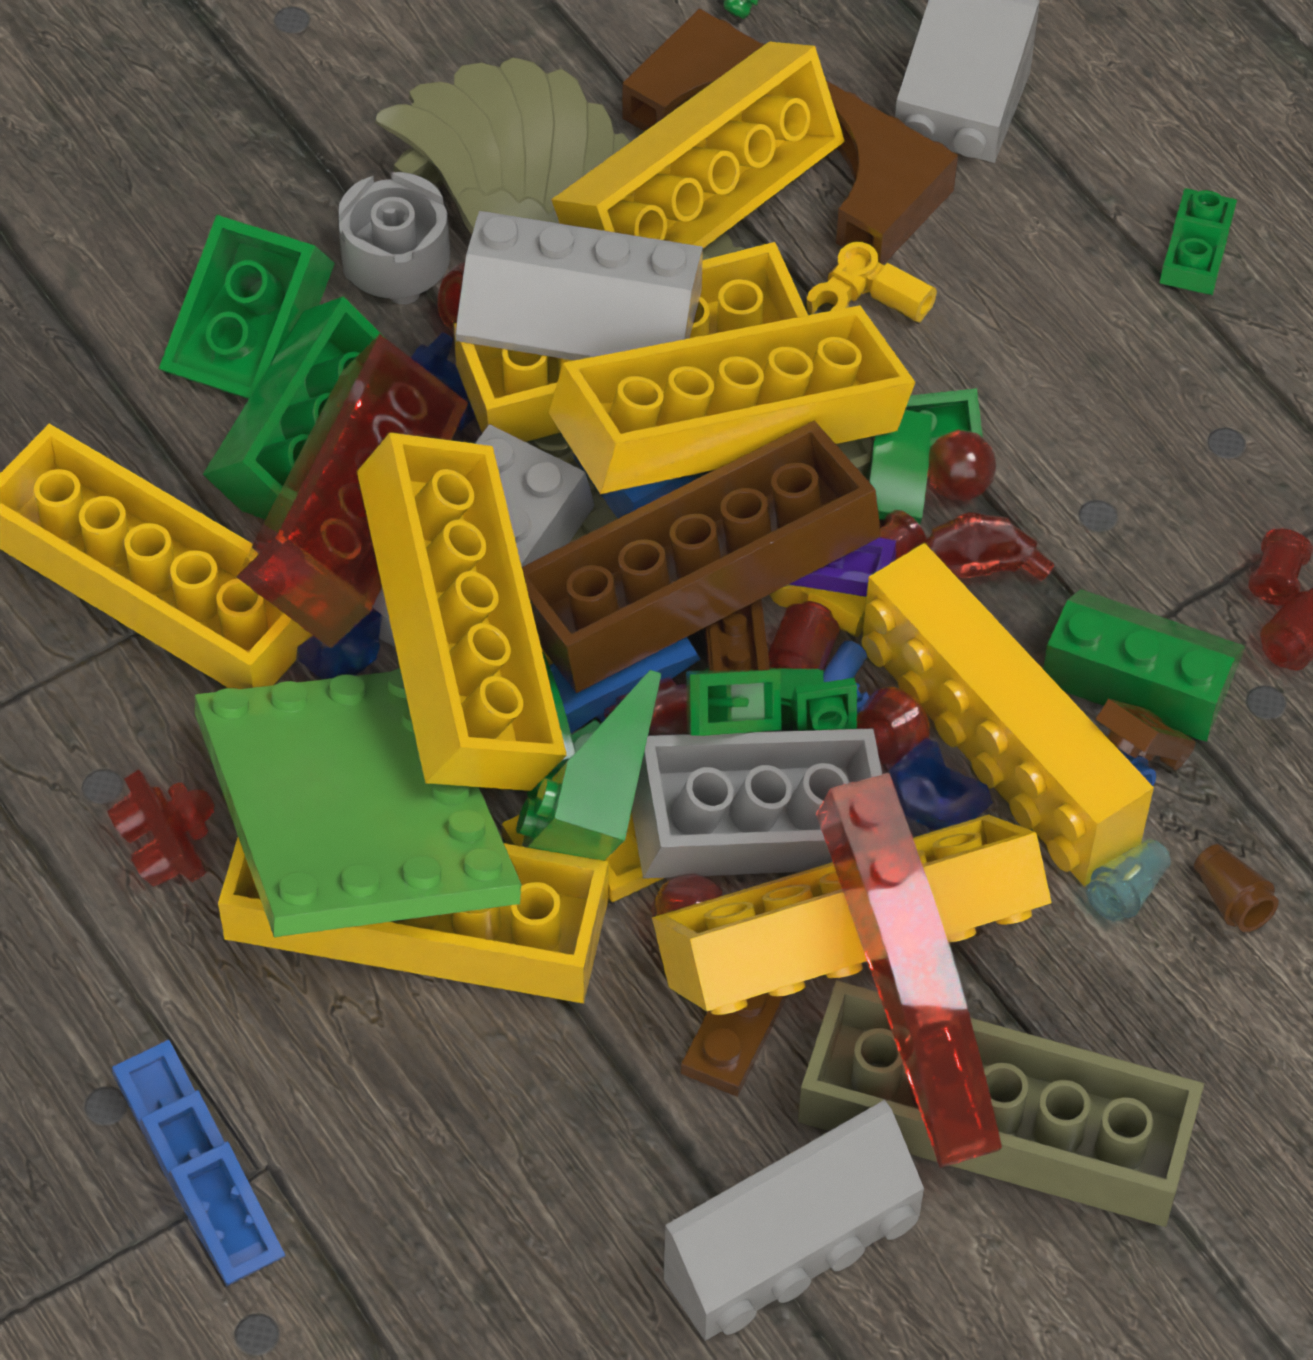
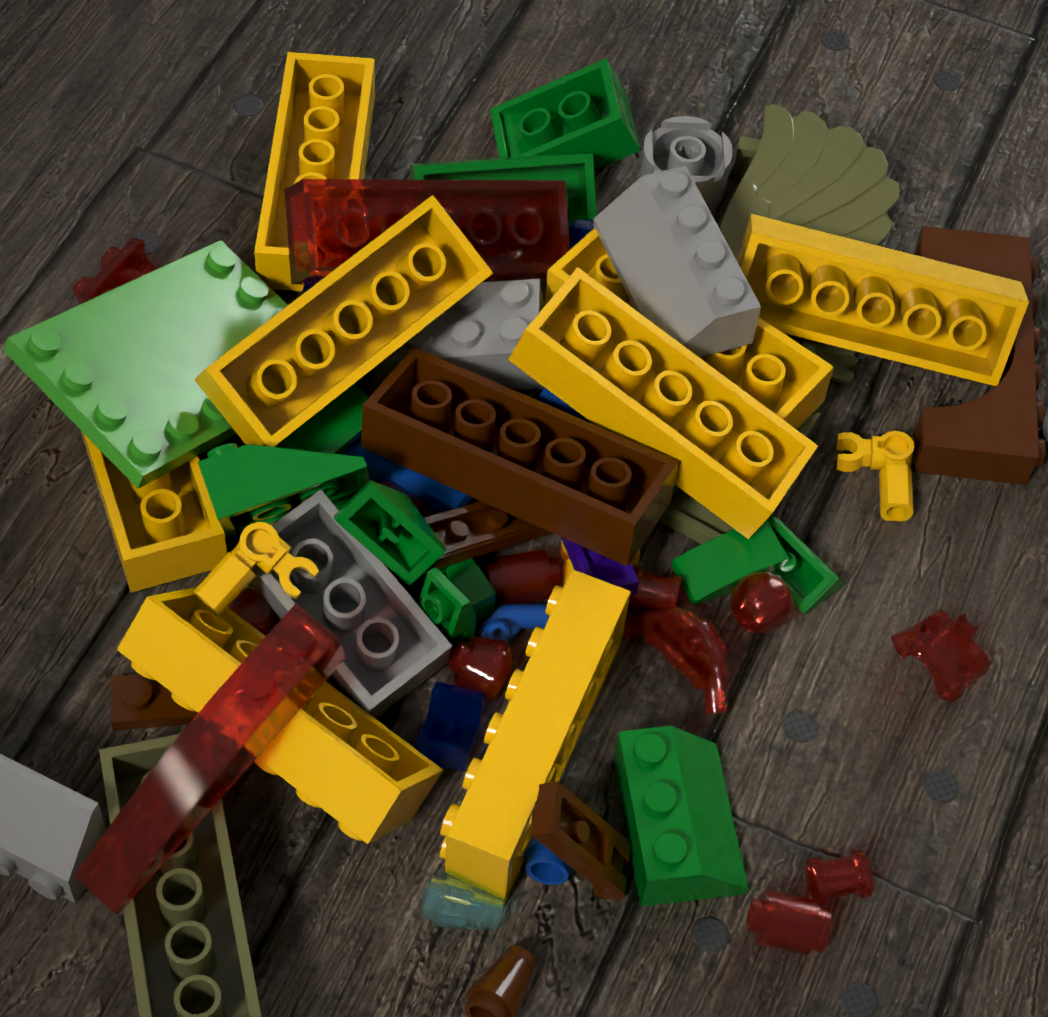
camera: 55 degrees right, 0 degrees up
(680, 823) = (260, 548): none -> yellow bar
(1098, 354) = (945, 651): none -> clear red piece

